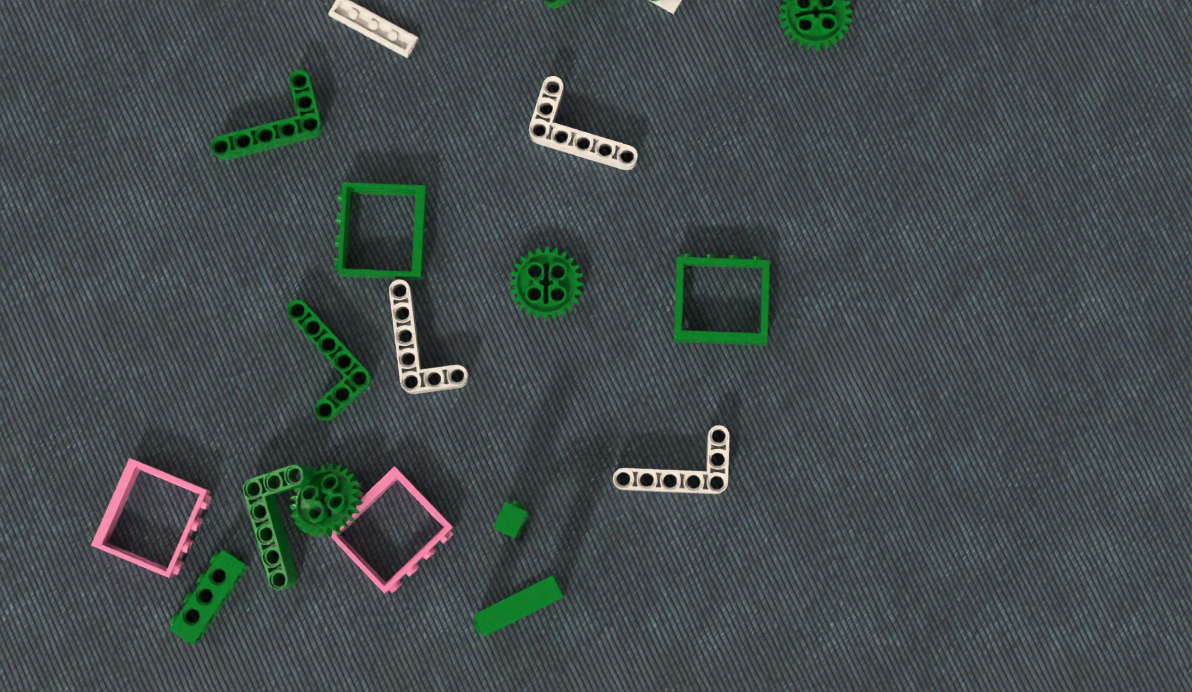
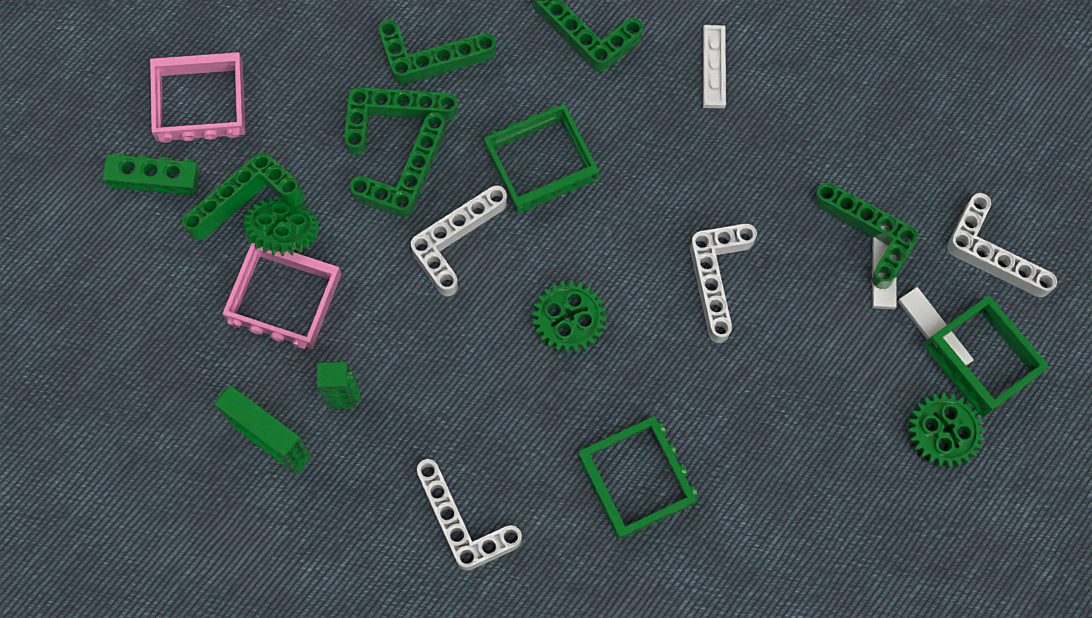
camera: 60 degrees right, 10 degrees down
(227, 280) = (432, 55): none -> green beam
(260, 342) = (391, 109): none -> green beam

